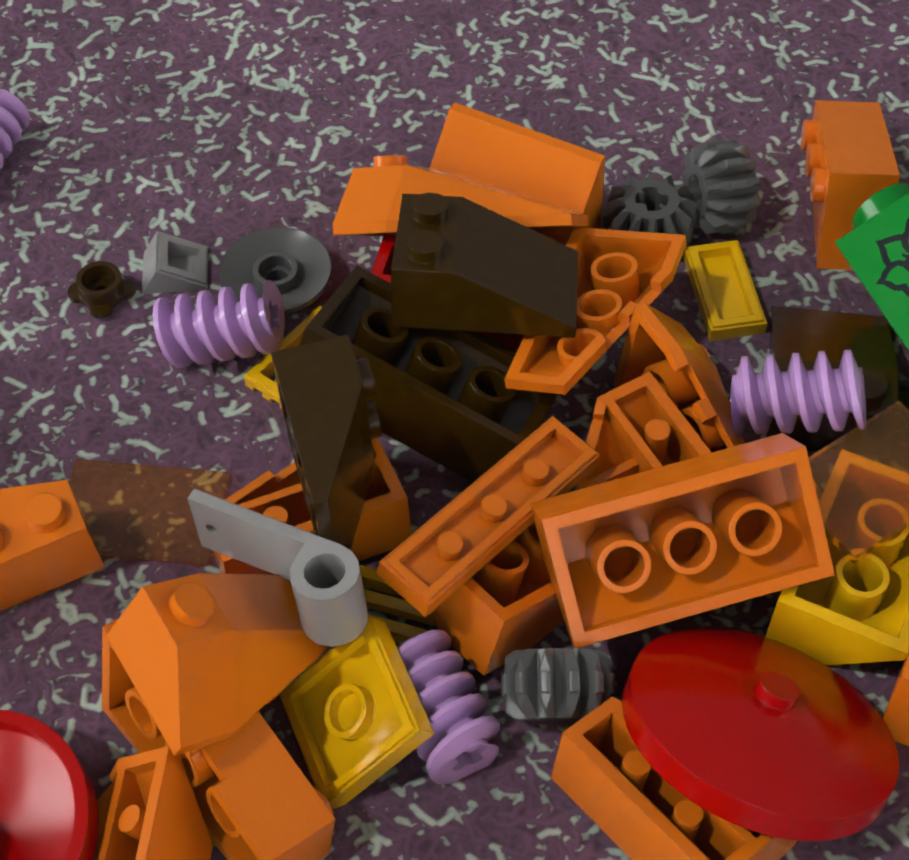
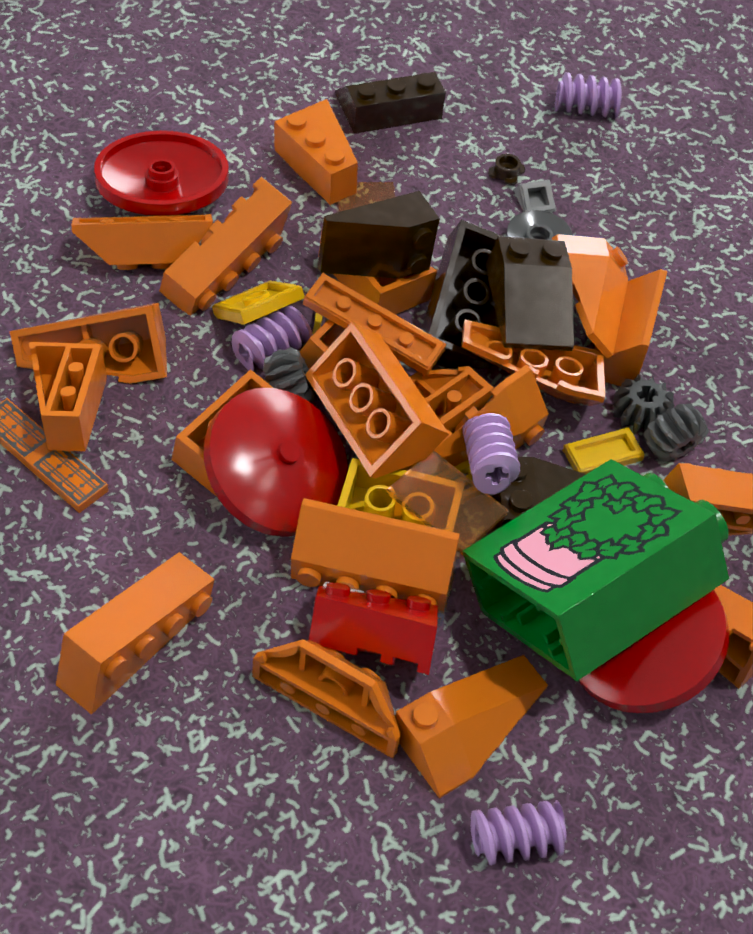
camera: 70 degrees right, 0 degrees up
(211, 652) = (264, 226): orange wedge -> none
(221, 329) = (486, 208): lavender piece -> none
(321, 571) = (302, 247): light grey door -> none

